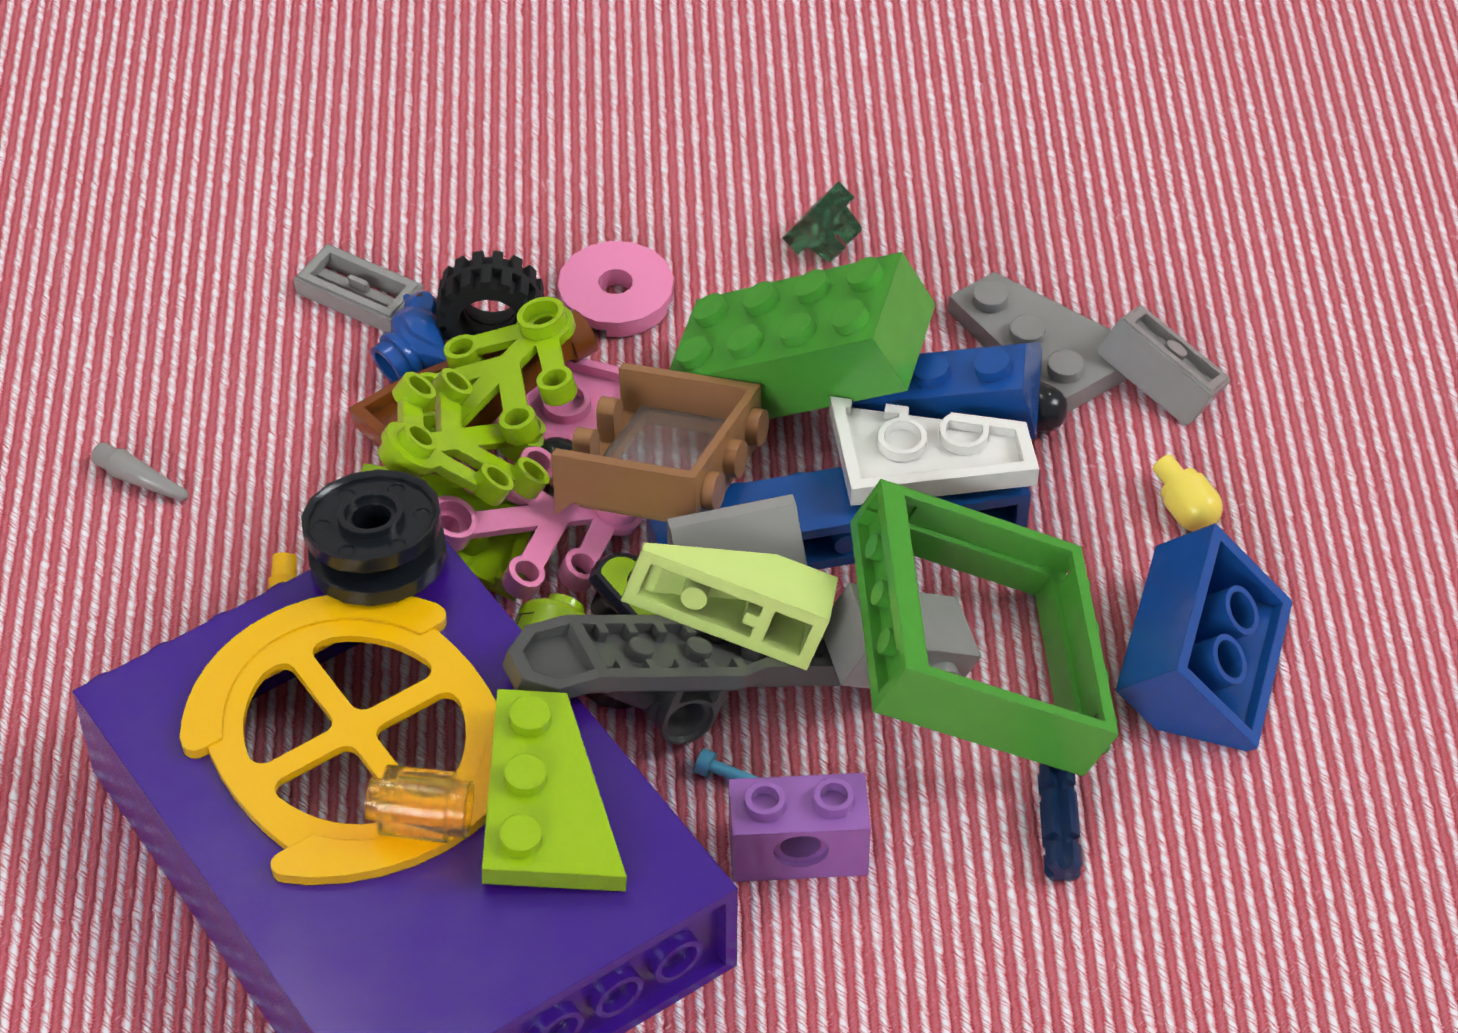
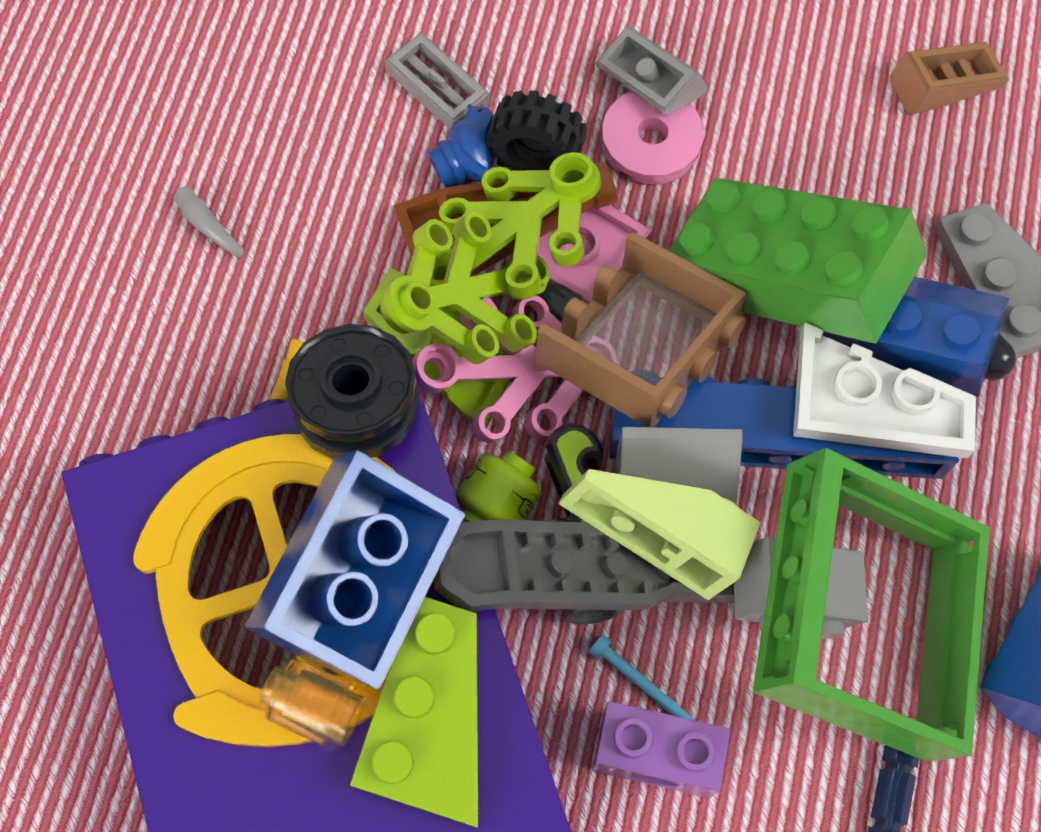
camera: 15 degrees right, 20 degrees up
(429, 673) = (356, 569): none -> blue slope
(597, 224) = (651, 72): none -> light grey slope
(820, 223) = (845, 111): clear green tile -> none
(914, 170) = (921, 90): none -> medium nougat slope

